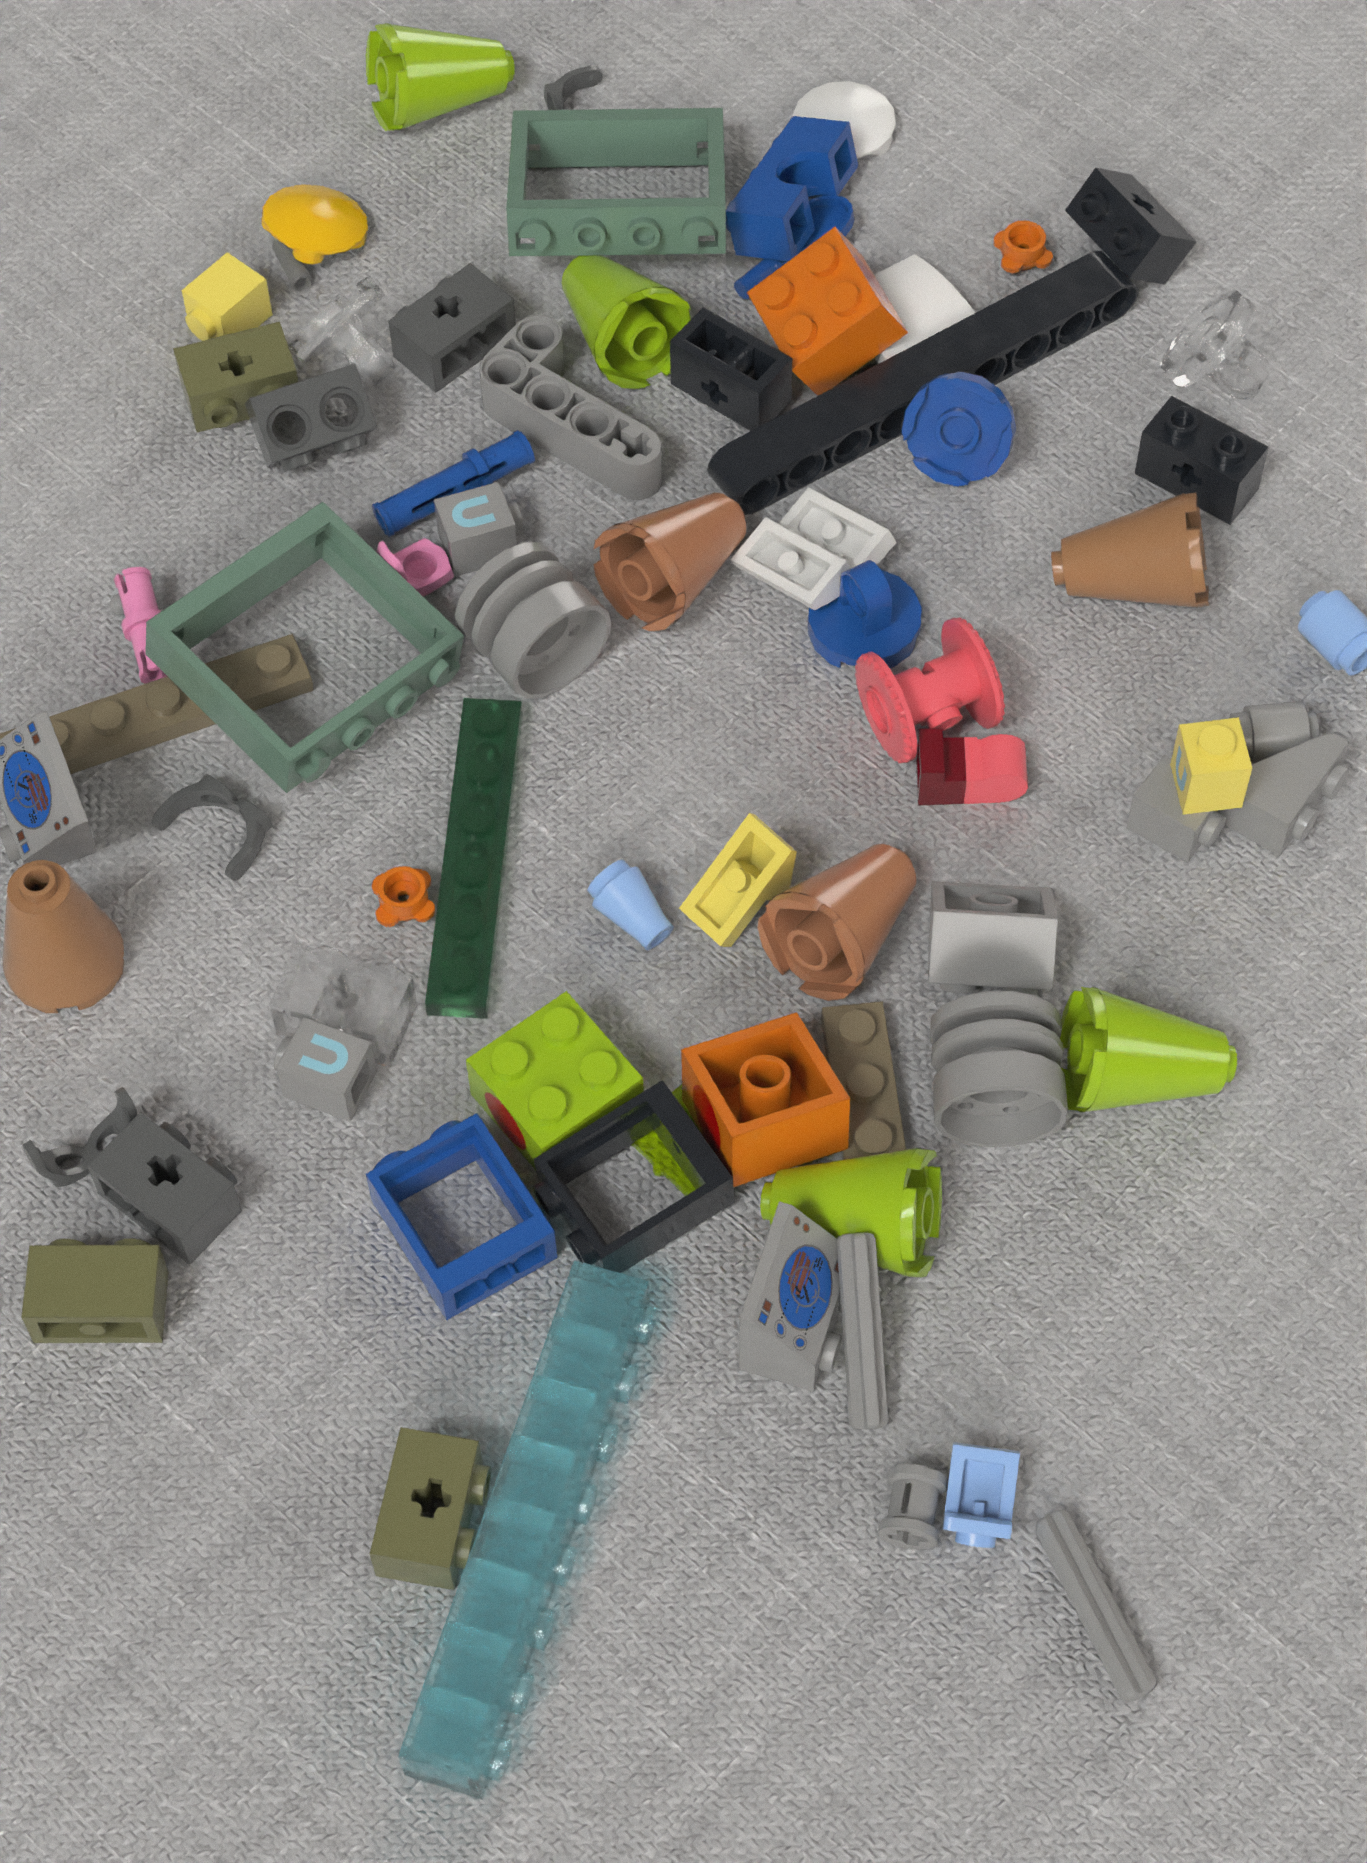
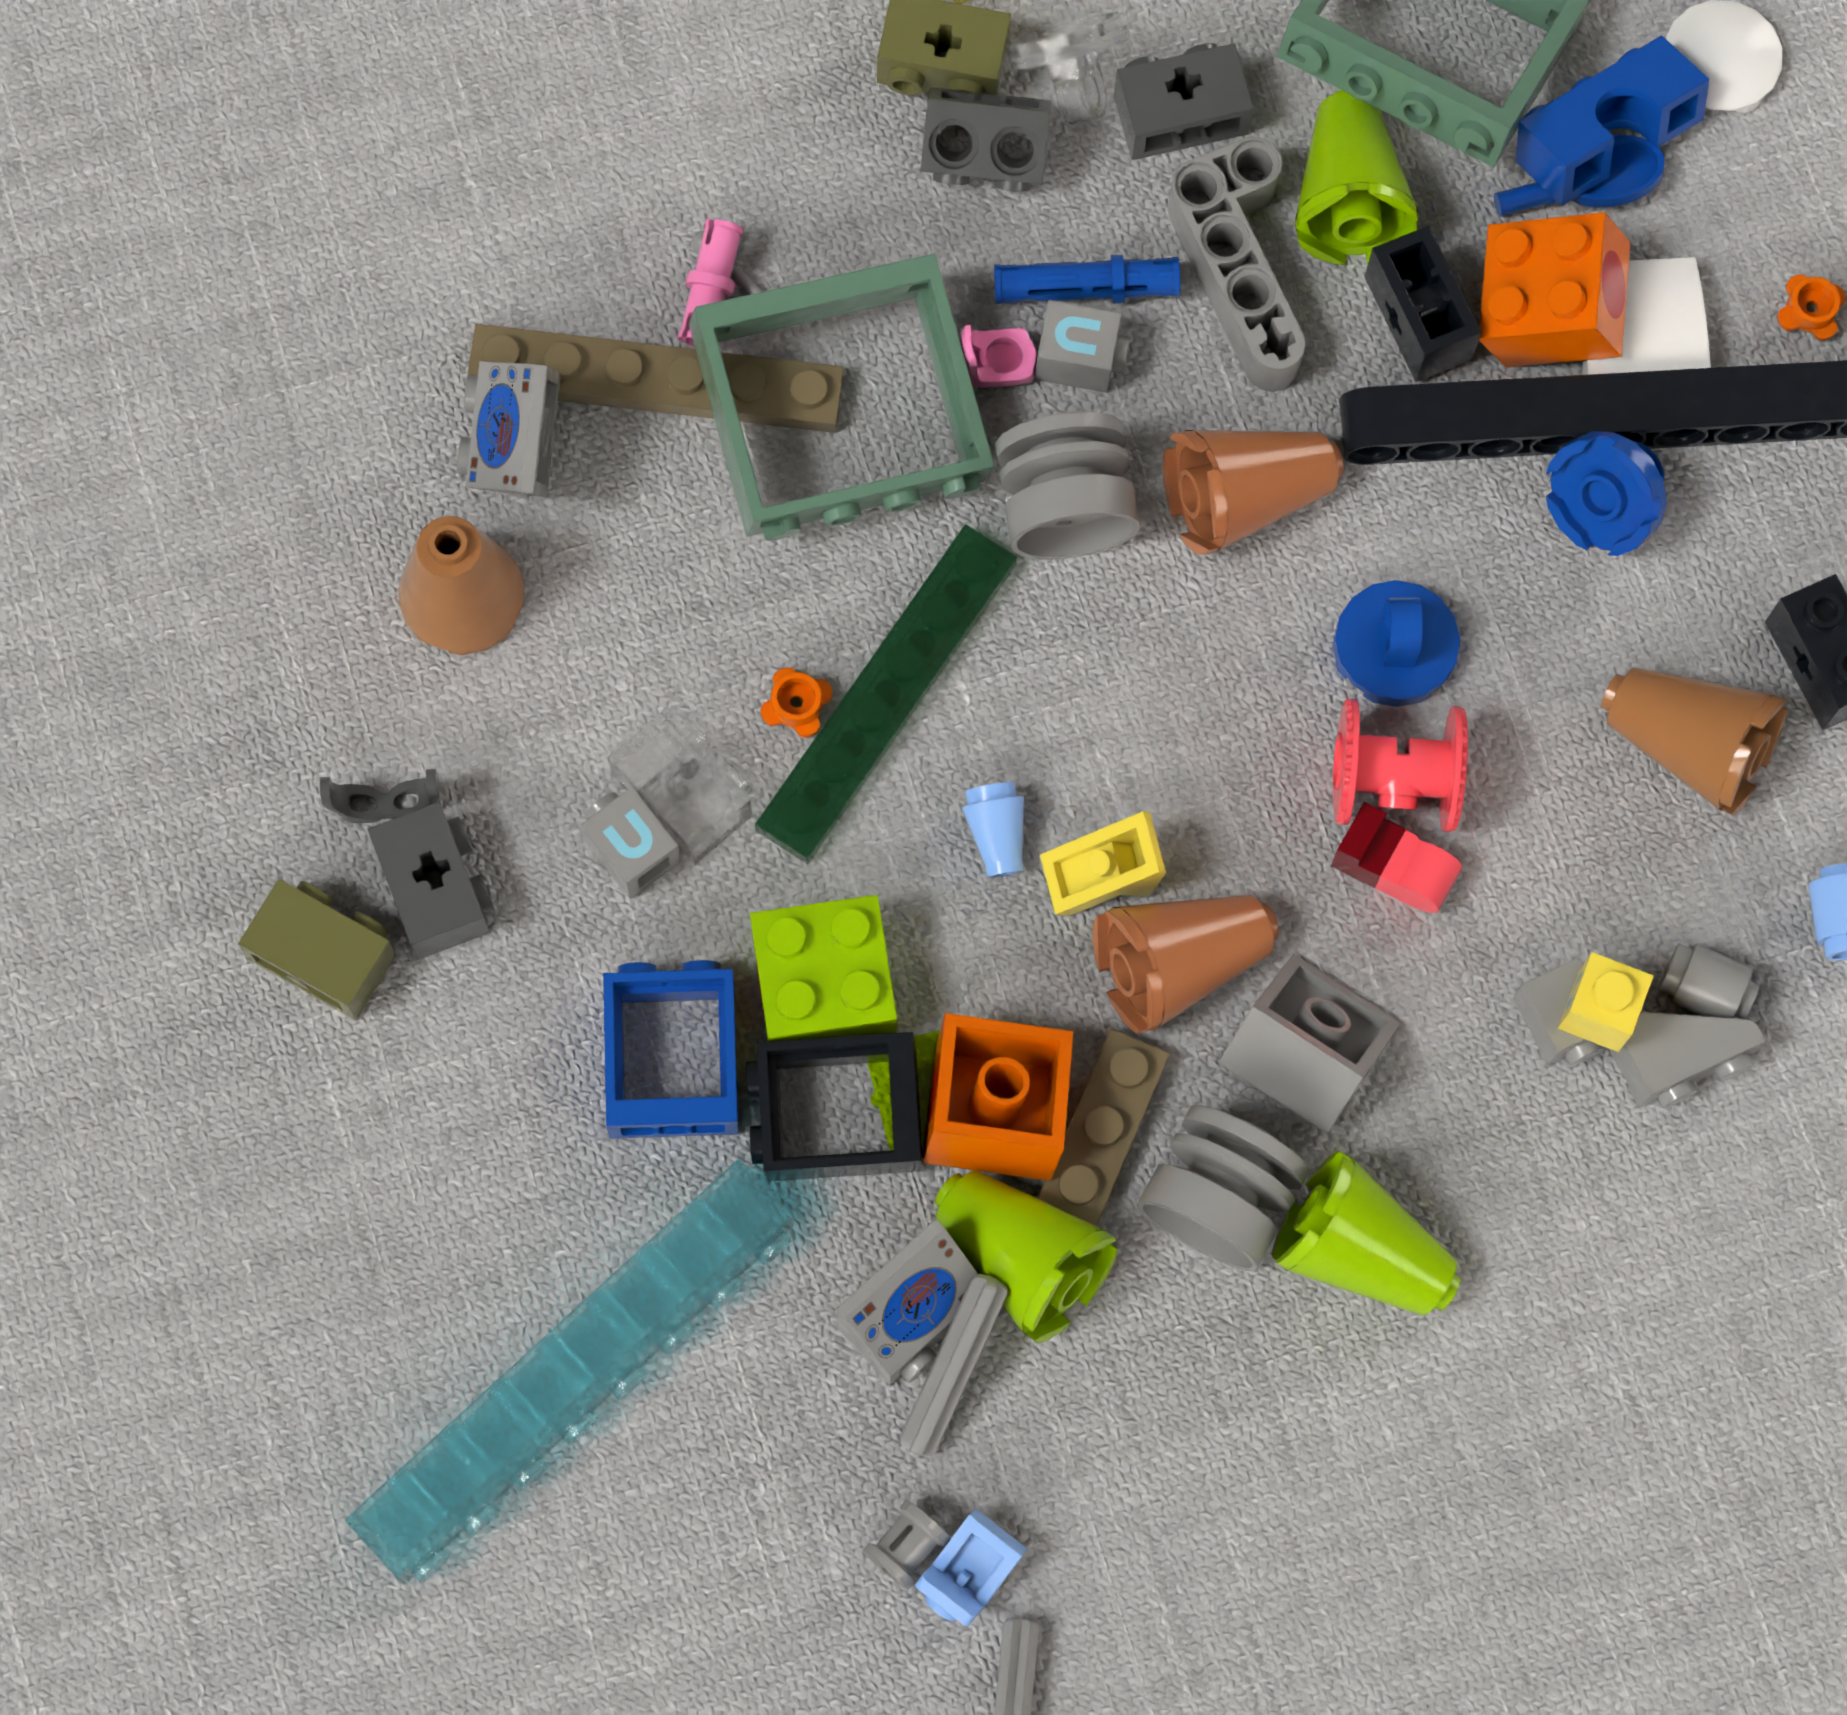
camera: 25 degrees right, 15 degrees up
(214, 793) = (678, 494): dark grey cap -> none
(424, 1471) = (498, 1275): olive brick -> none
(812, 548) = (1387, 545): white slope -> none

